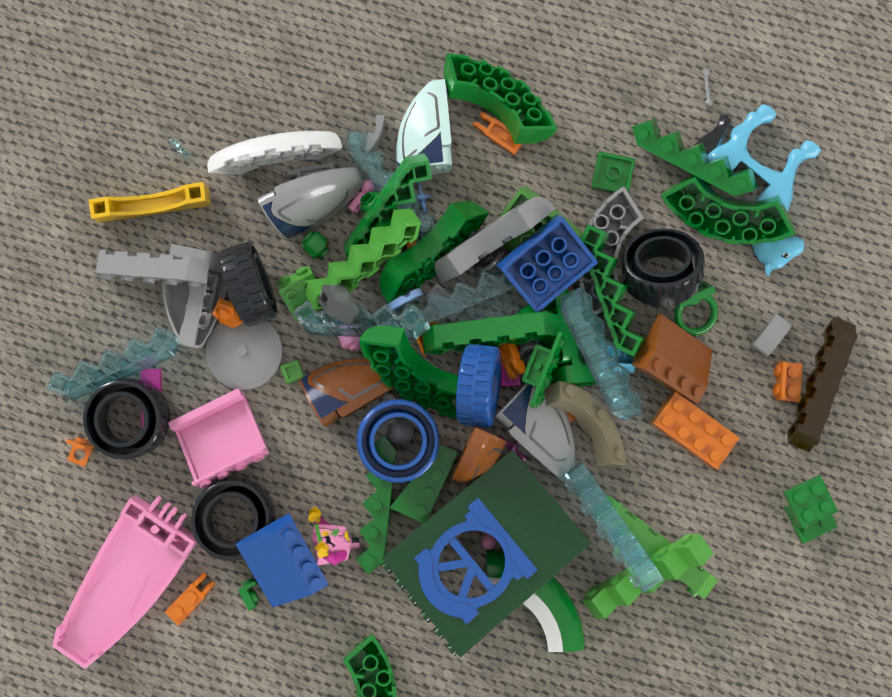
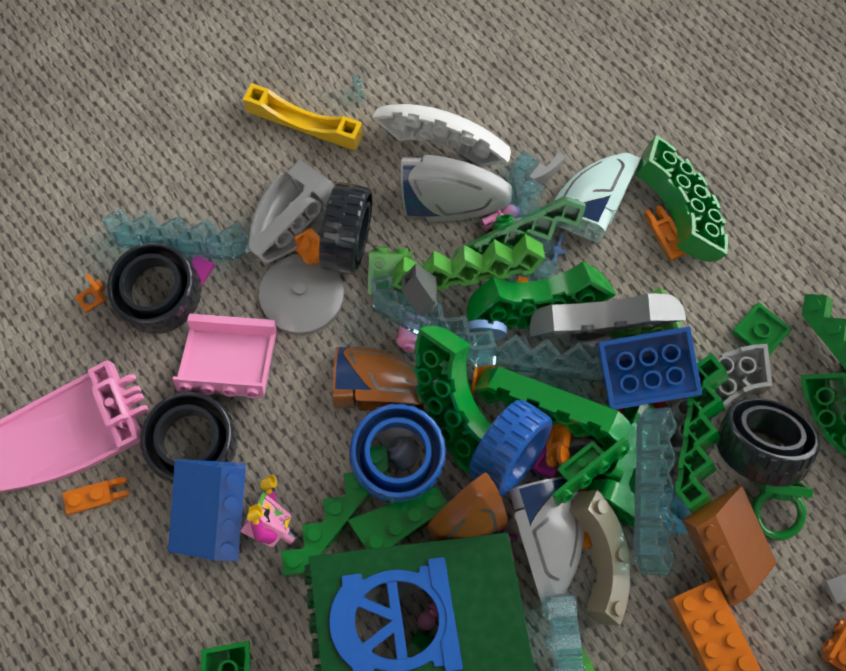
camera: 30 degrees right, 15 degrees down
(152, 268) = (267, 167): light grey brick -> none
(249, 596) = (153, 527): green bracket -> none
(292, 371) = (334, 337): bright green tile -> none
(315, 244) = (429, 235): green head -> none

